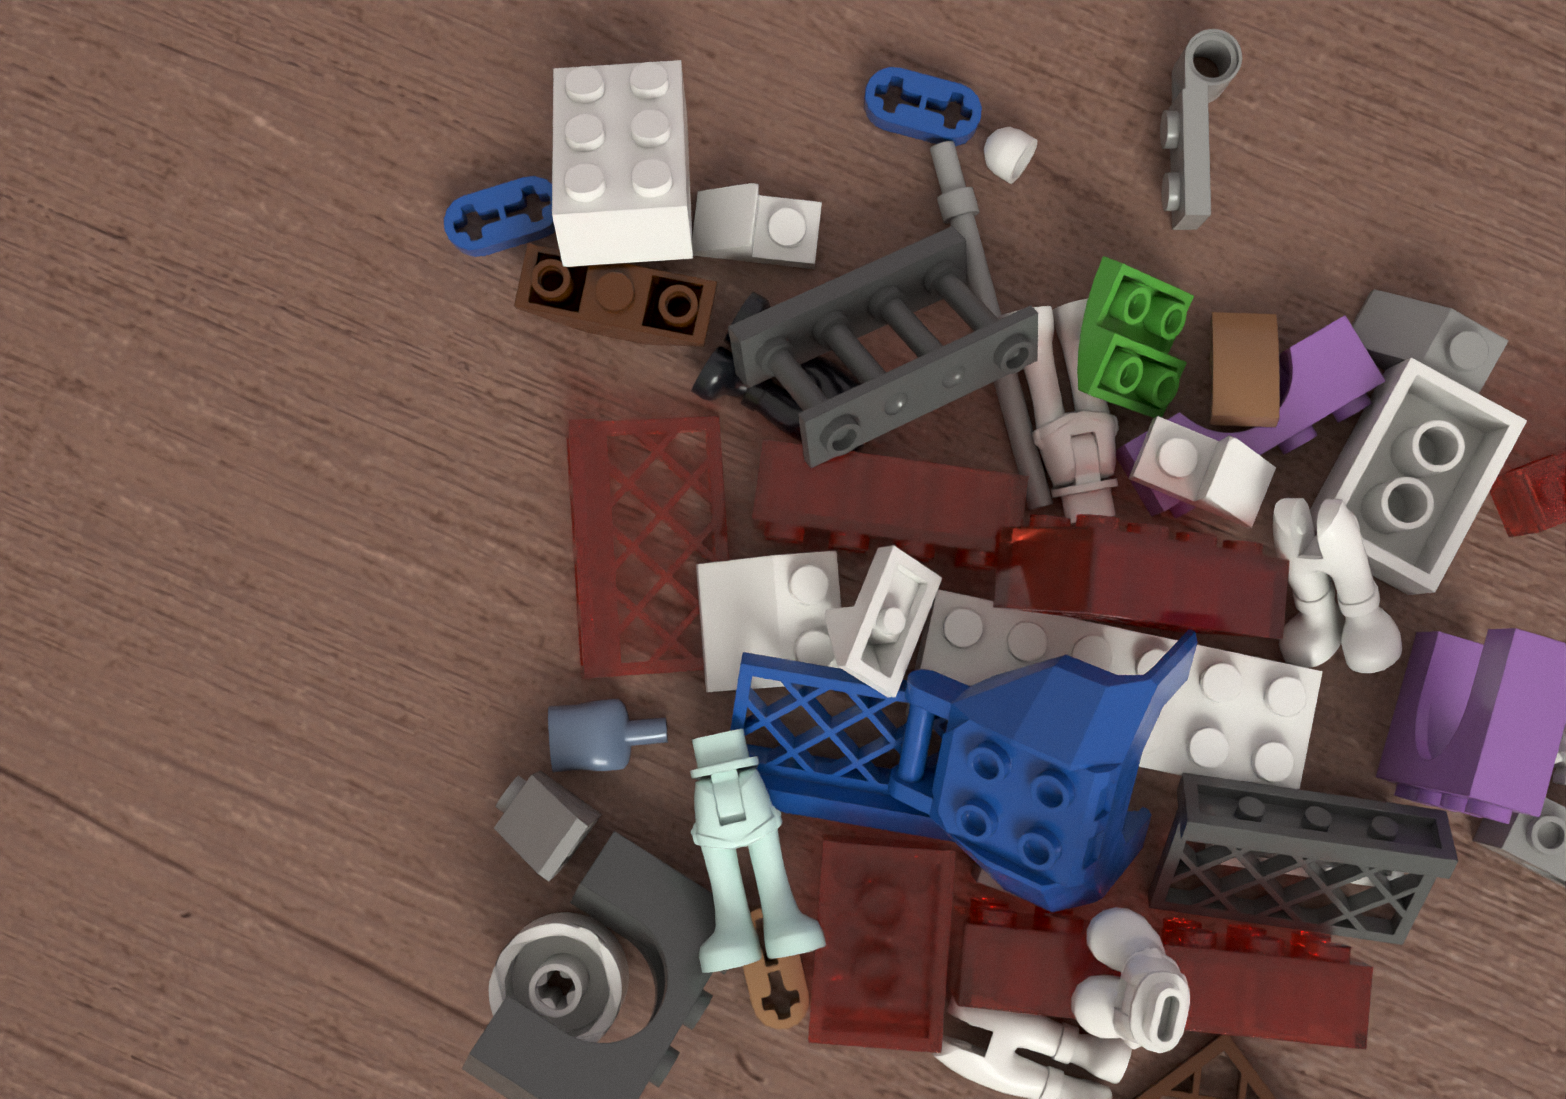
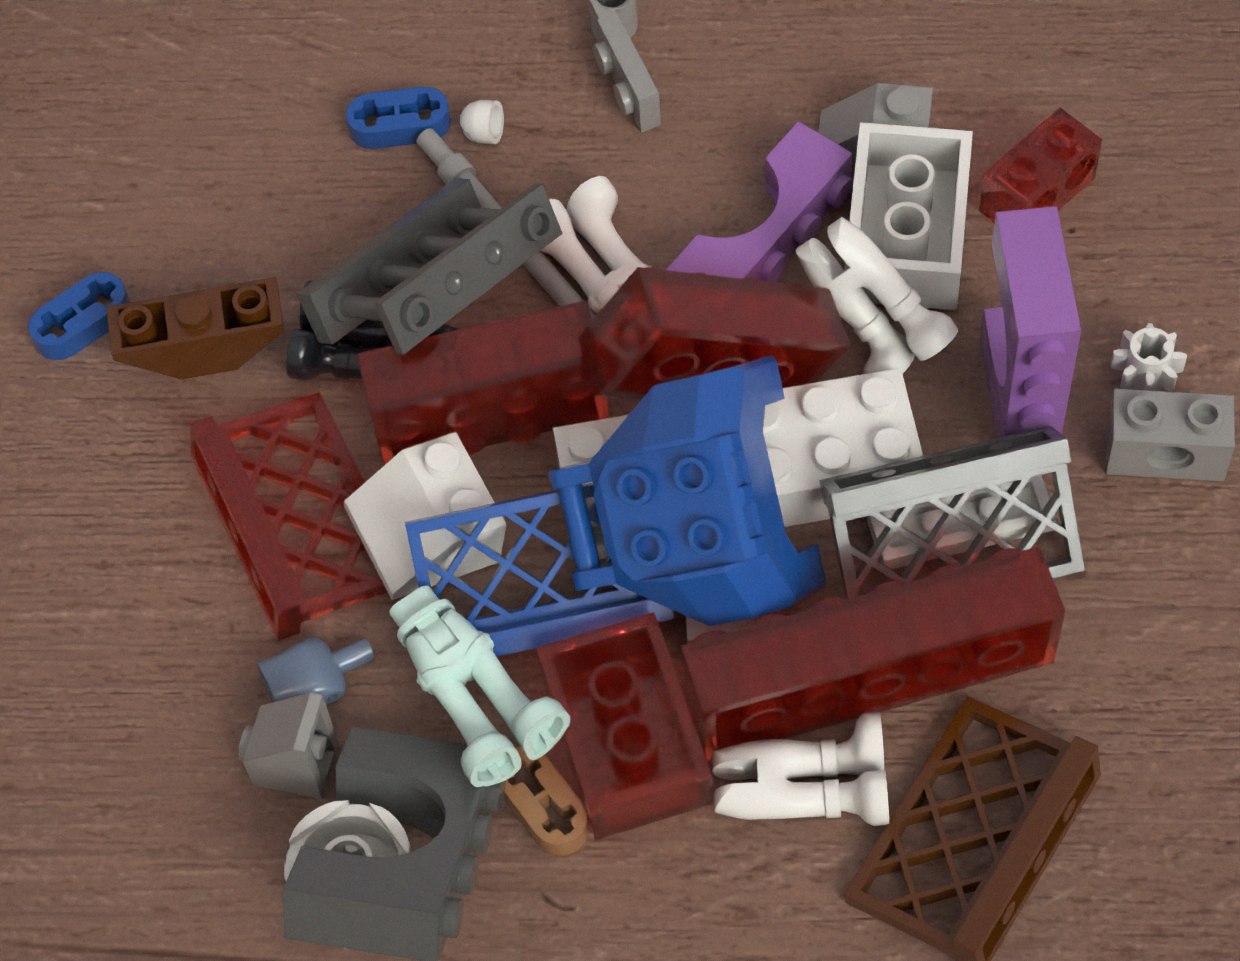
camera: 20 degrees left, 25 degrees down
(621, 164) = (165, 222): white brick -> none
(755, 227) = (295, 247): white slope -> none
(885, 623) = (512, 443): white slope -> none
(1128, 339) = (635, 197): bright green slope -> none
(1148, 1000) = (830, 602): white piece -> none
(1203, 472) = (750, 252): white slope -> none
(1244, 369) = (738, 192): medium nougat slope -> none

